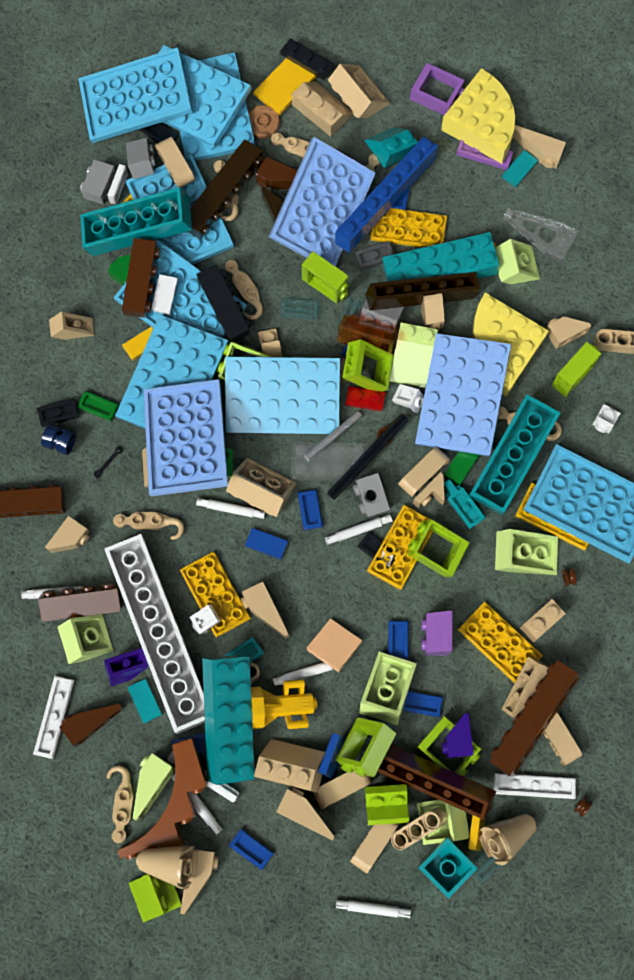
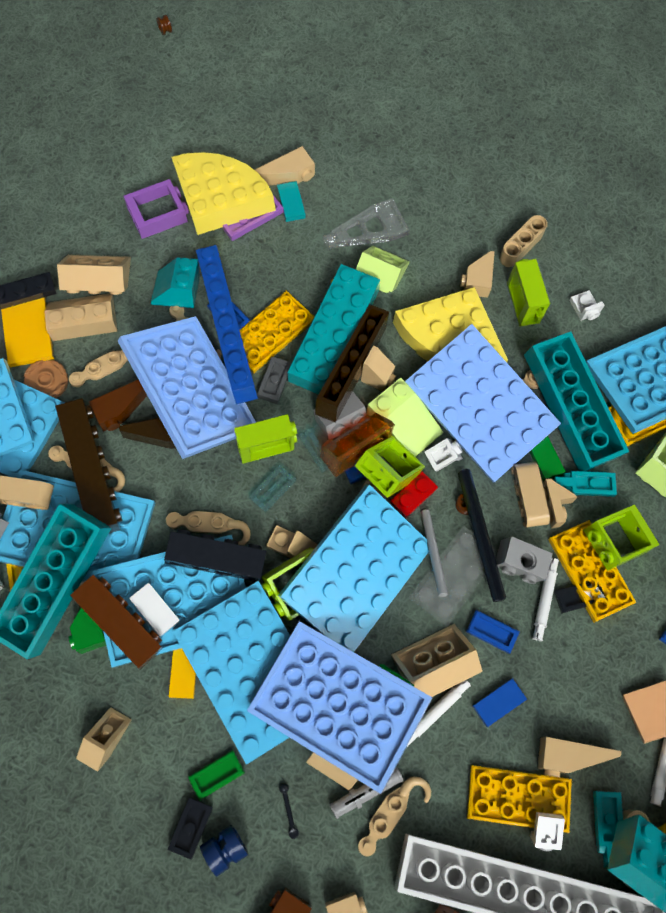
camera: 60 degrees left, 5 degrees down
(142, 494) = (339, 807): none -> light grey pin

